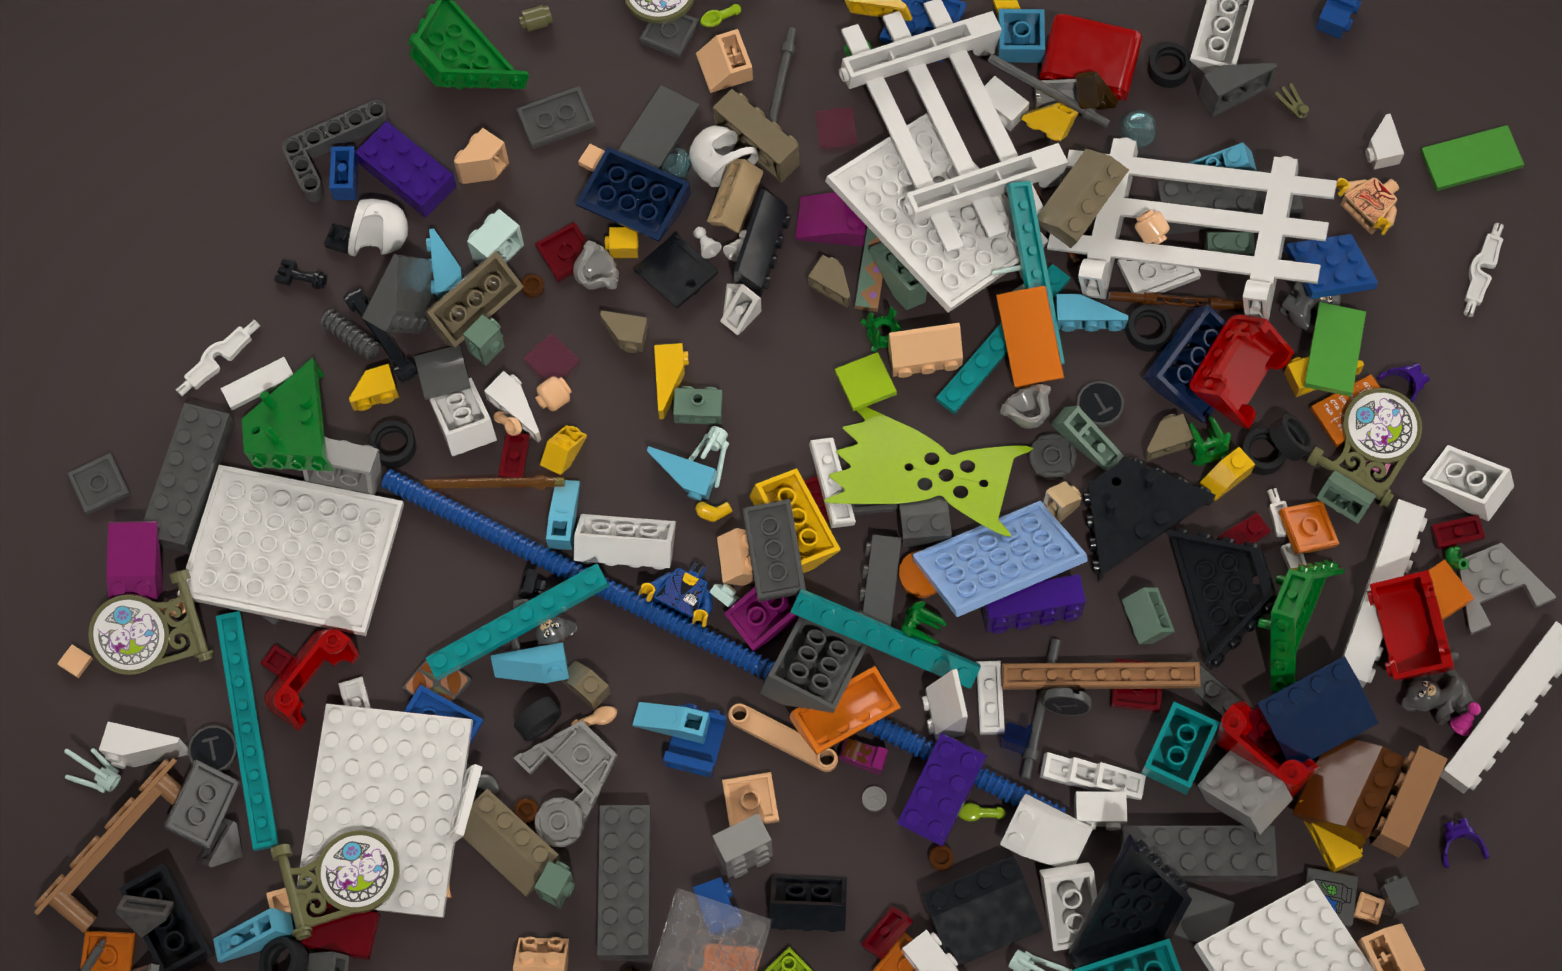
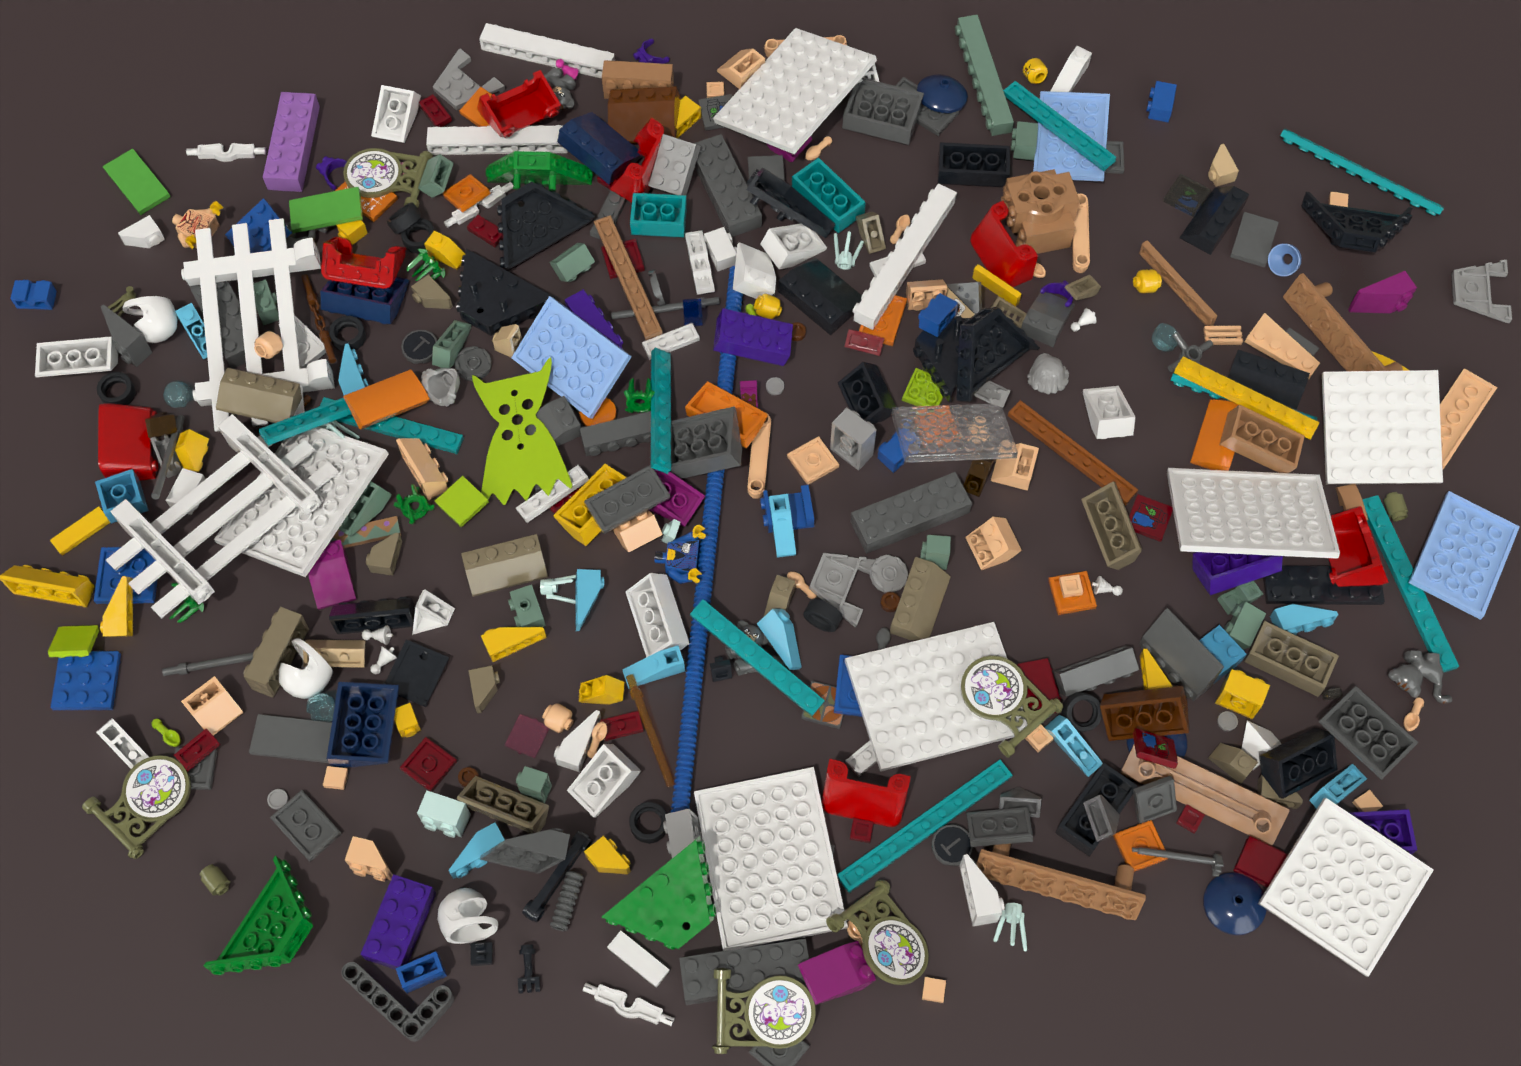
camera: 115 degrees left, 5 degrees down
(133, 482) = (775, 1012): none -> piece
(442, 372) = (572, 811): dark grey slope -> none
(464, 803) = (909, 634): white tile -> none
(596, 268) = (438, 729): light grey hair -> none
(598, 100) = (277, 799): none -> light grey piece
(682, 34) = (197, 749): none -> dark red plate
(712, 513) = (609, 567): yellow arm -> none
(762, 401) = (504, 565): none -> dark tan slope
(836, 128) = (245, 606): clear pink piece -> none
(945, 706) = (693, 352): white slope -> none
(987, 832) = (767, 306): none -> yellow head
(1246, 122) = (158, 318): none -> white piece
(1398, 895) = (701, 74): dark grey brick -> none
(1454, 558) = (459, 103): green arm -> none
(1467, 345) = (291, 142): none -> medium lavender brick

